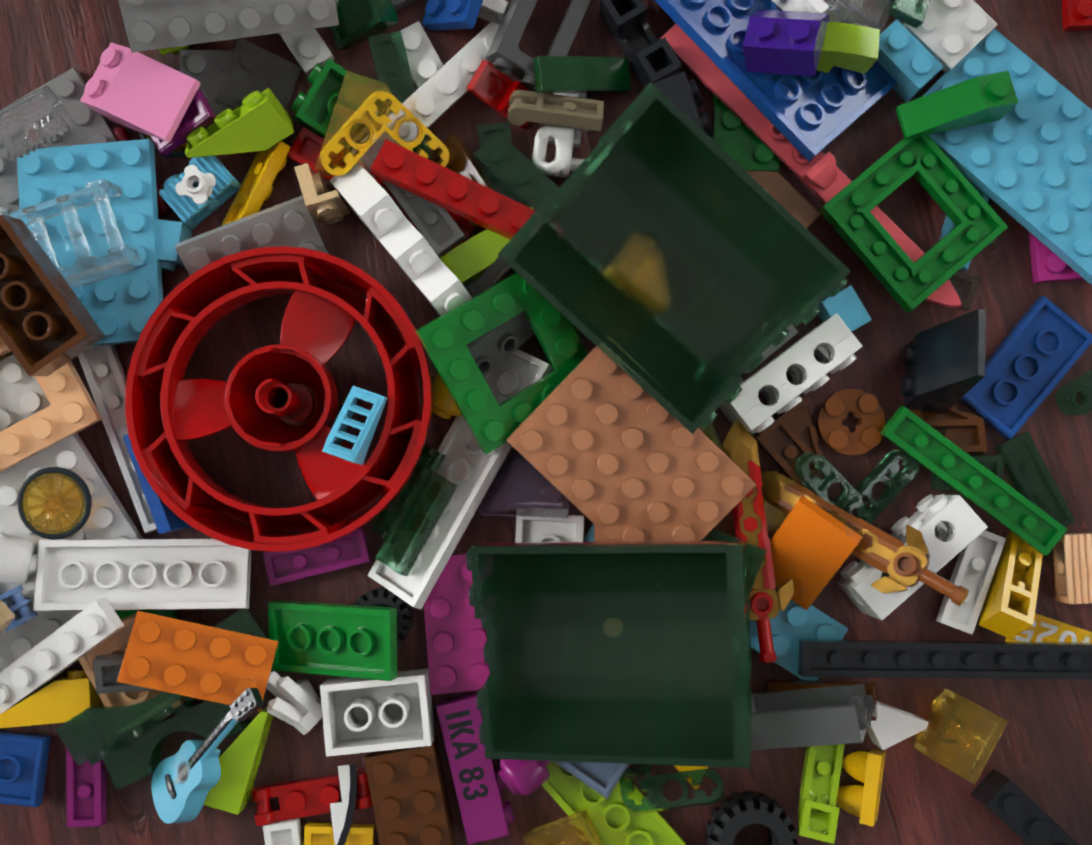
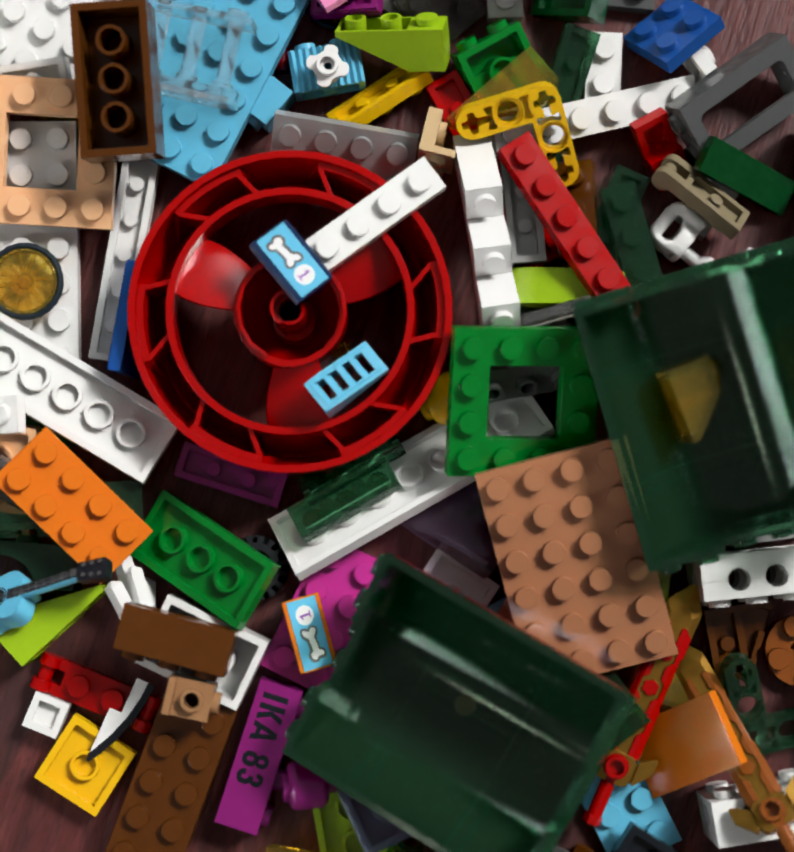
camera: 25 degrees right, 0 degrees up
(253, 358) = (291, 262): none -> slope
(299, 281) = (376, 214): none -> white plate
(346, 720) = (175, 640): none -> reddish brown brick
(372, 763) = (177, 690): none -> medium nougat brick
(453, 646) = (309, 632): none -> slope

